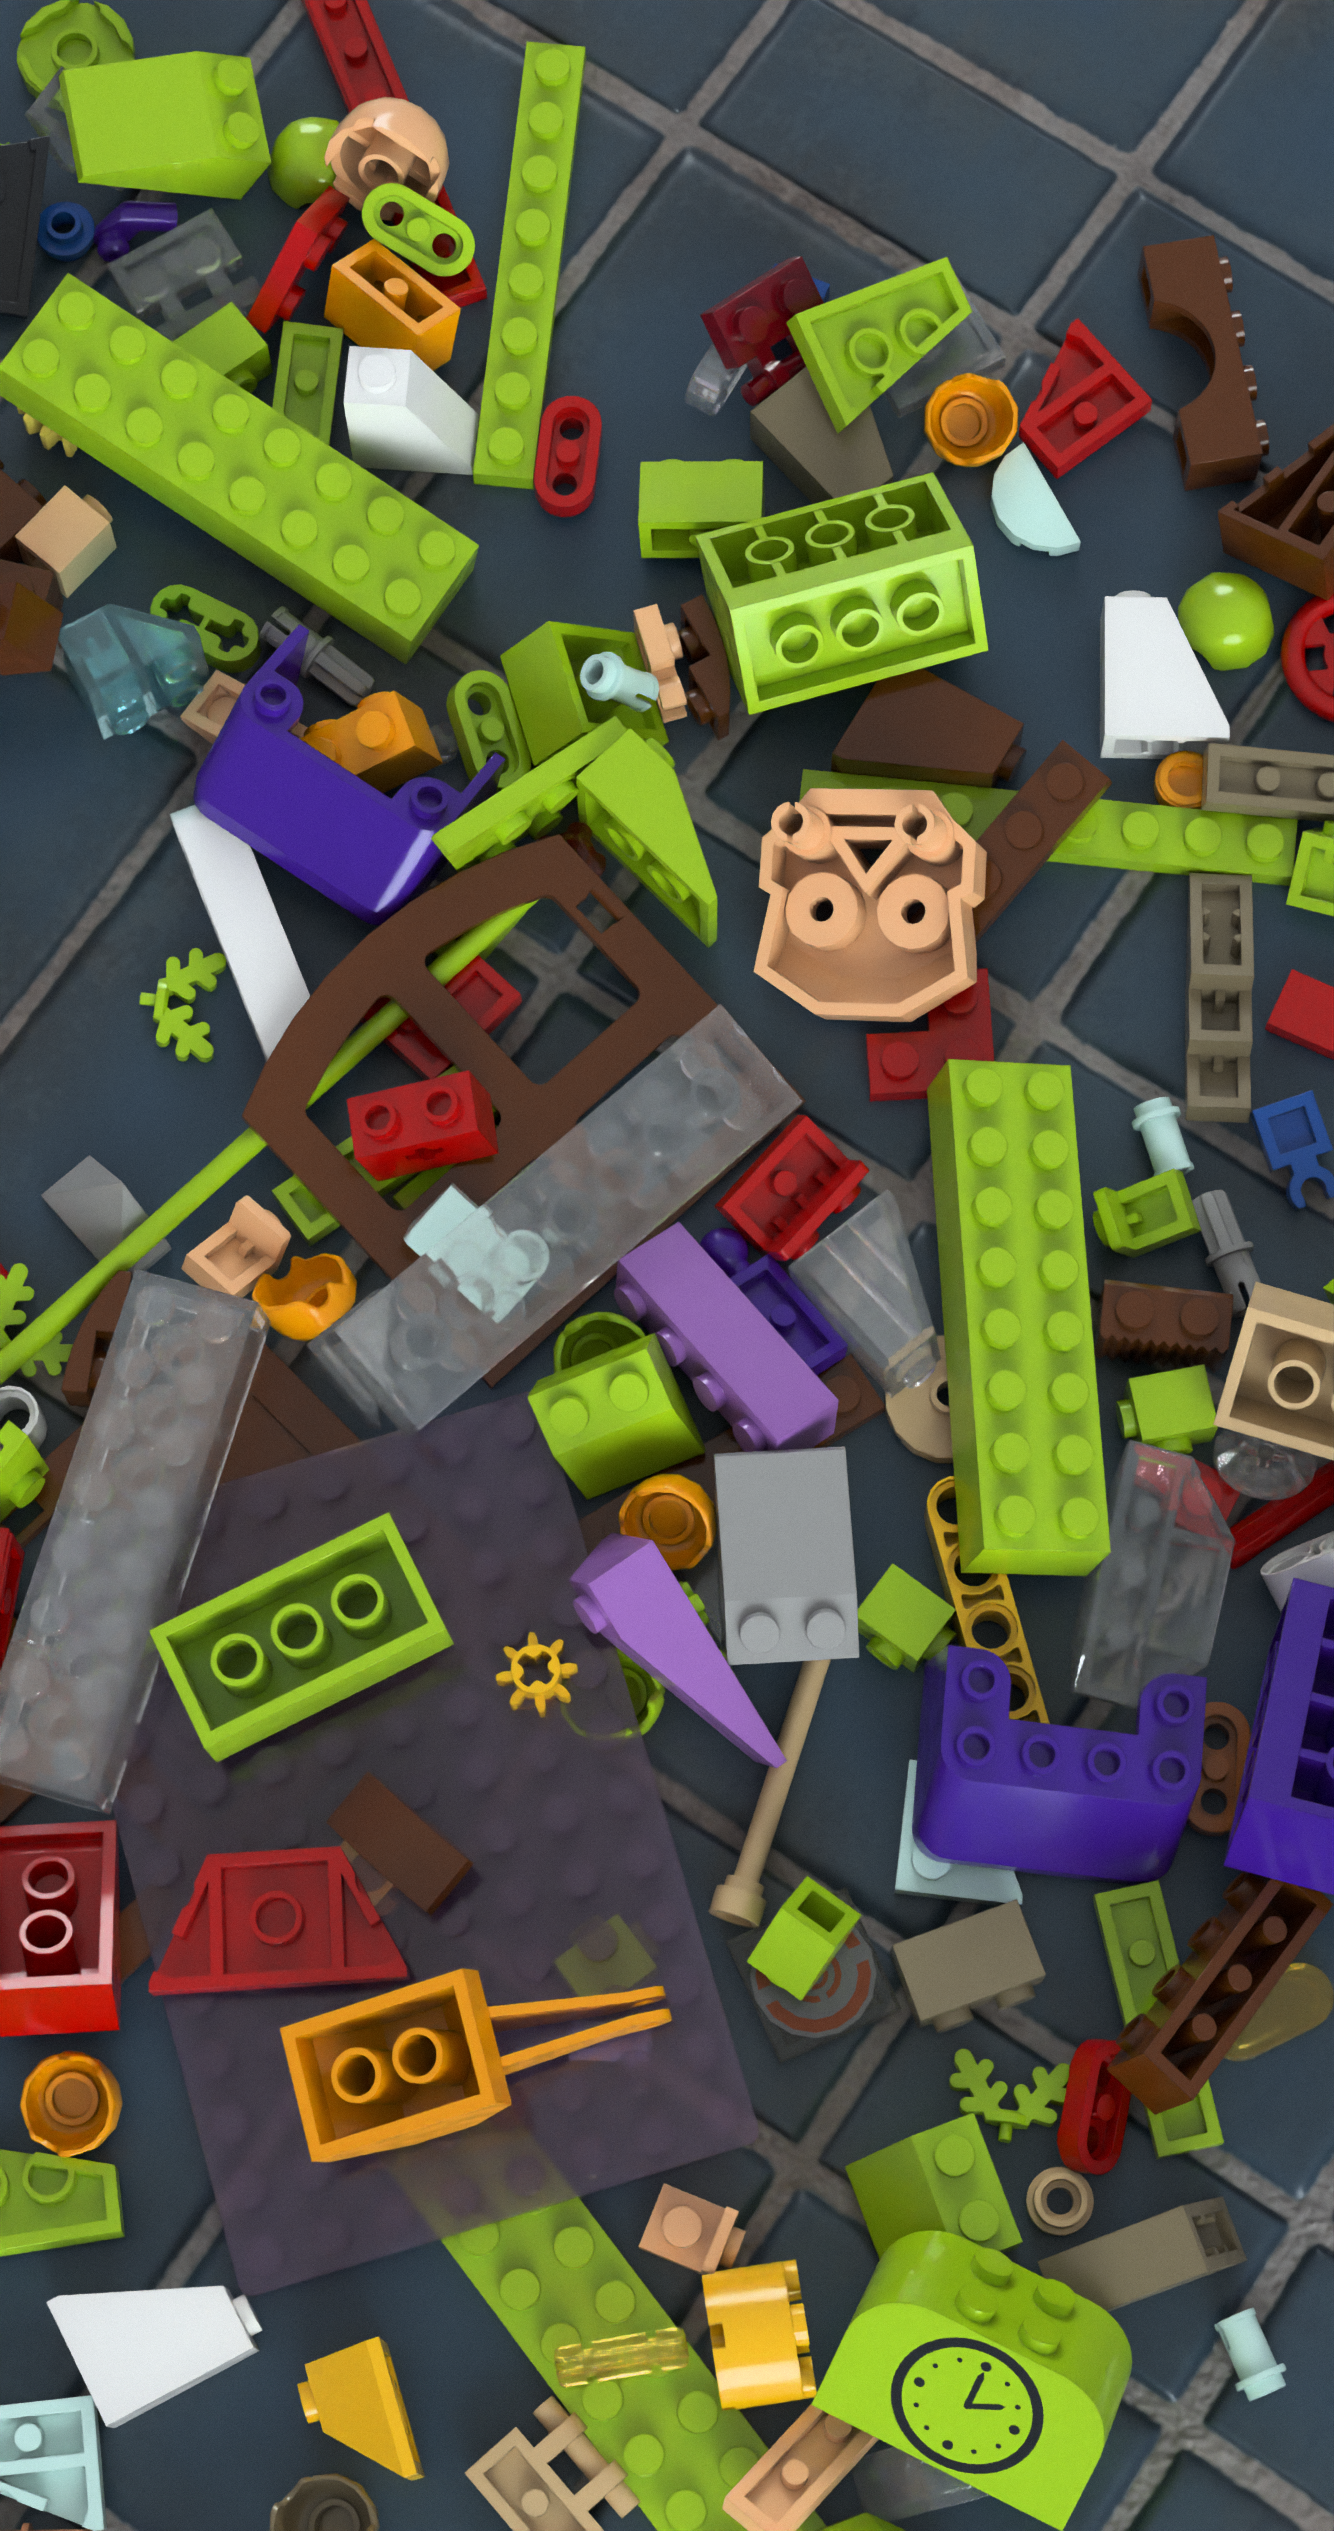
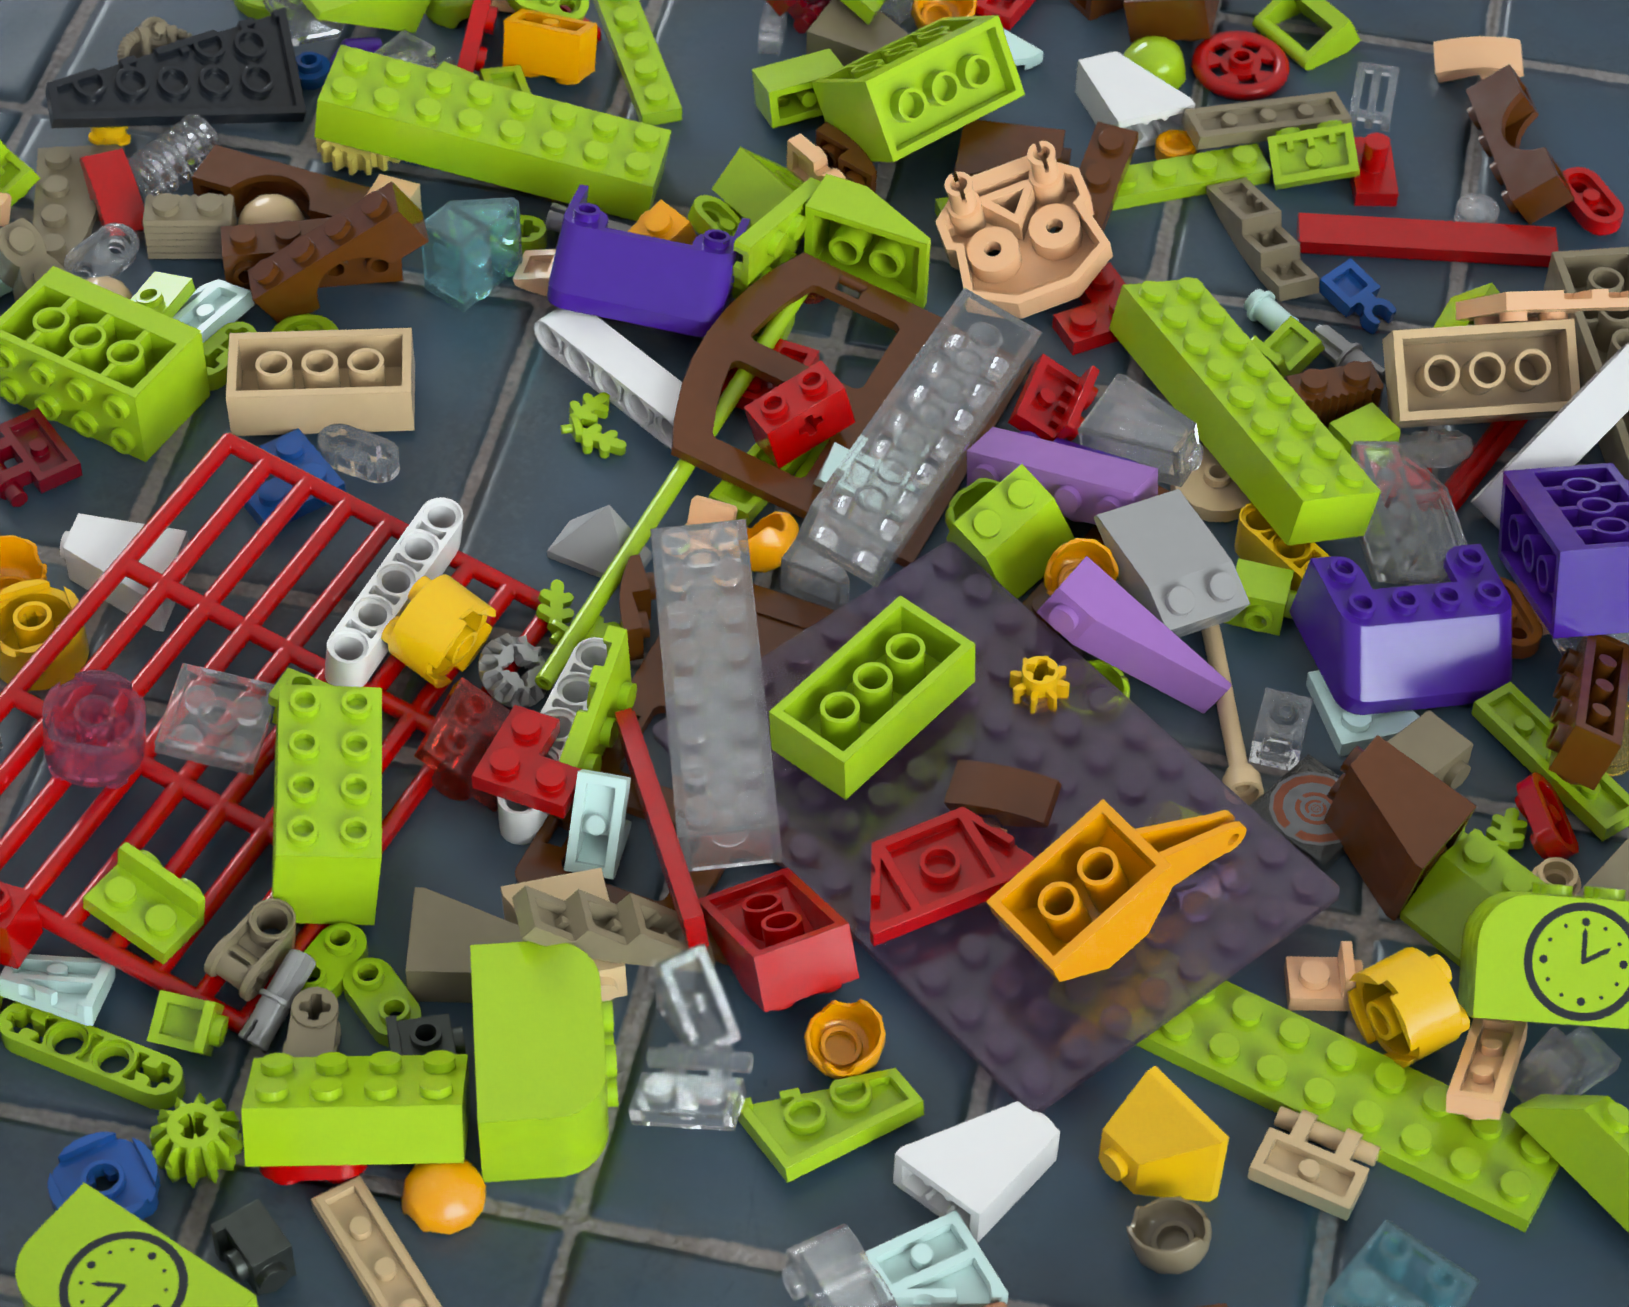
camera: 25 degrees left, 25 degrees down
(406, 415) = (584, 76): white slope -> none
(568, 460) = (698, 92): red plate -> none
(609, 678) = (794, 165): light aqua pin -> none
(621, 2357) = (1321, 1052): clear yellow axle -> none
(803, 1938) = (1303, 772): lime brick -> none
(824, 1867) = (1280, 729): none -> clear brick
(877, 2068) = (1394, 820): none -> reddish brown slope

